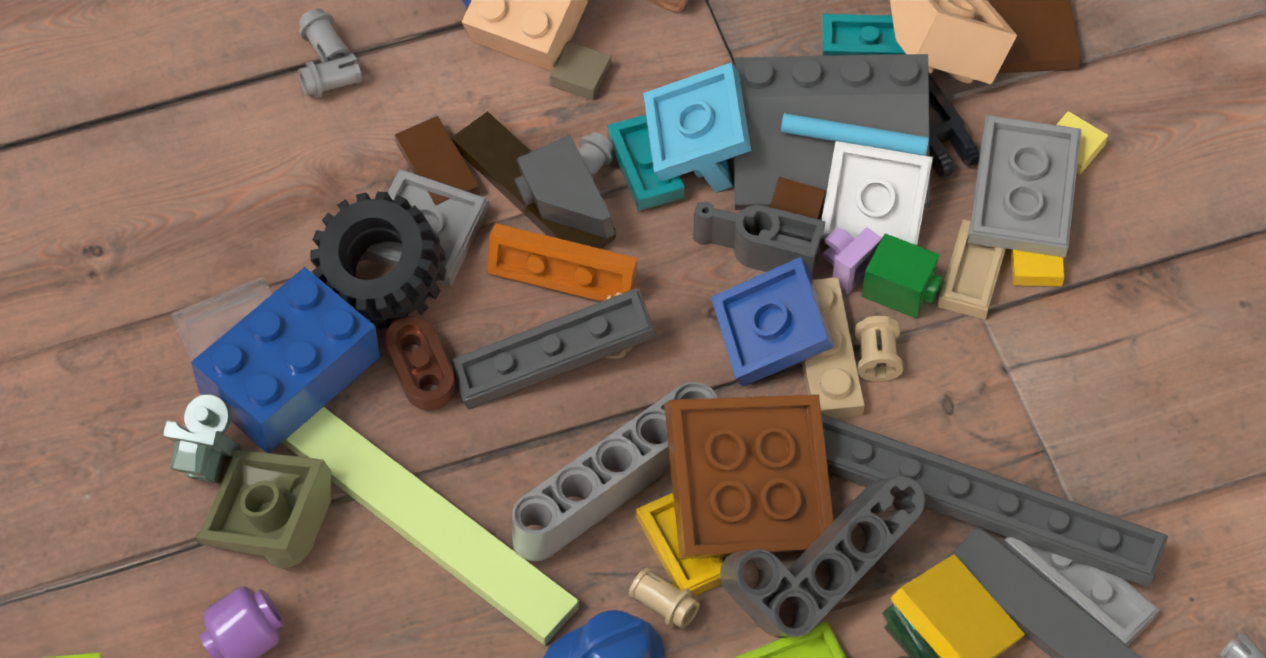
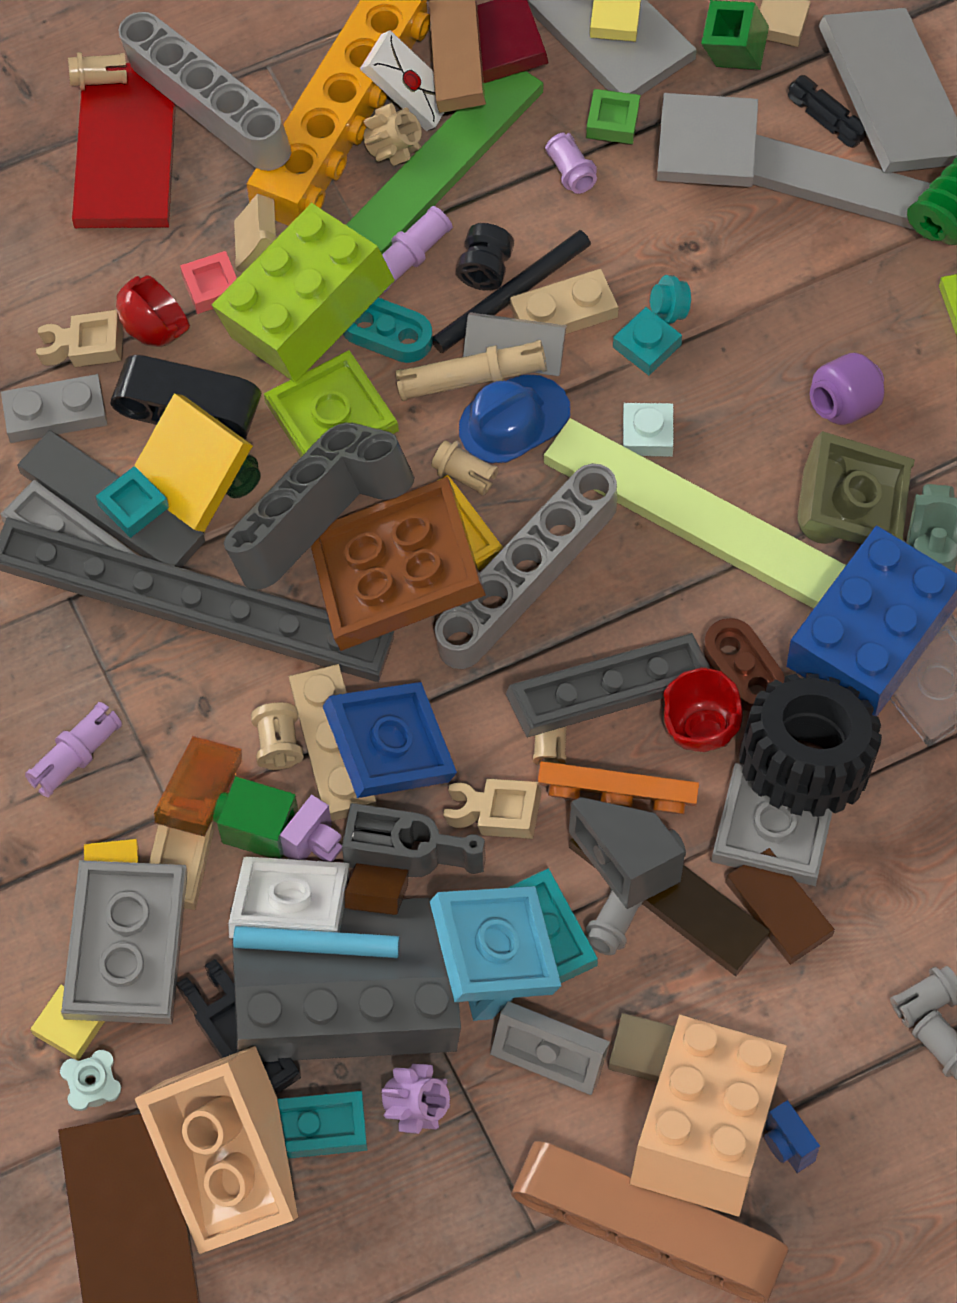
camera: 175 degrees right, 5 degrees up
(462, 624) = (648, 428): none -> light aqua plate
(470, 313) = (702, 710): none -> red hair
(640, 62) = (549, 1048): none -> light grey plate
(671, 263) = (502, 810): none -> tan plate
(778, 36) = (415, 1098): none -> lavender gear
(955, 311) = (196, 786): none -> clear orange tile
(1019, 582) = (132, 501): none -> teal plate
(1051, 104) = (85, 1095): none -> light aqua plate
(1075, 362) = (73, 749): none -> lavender pin

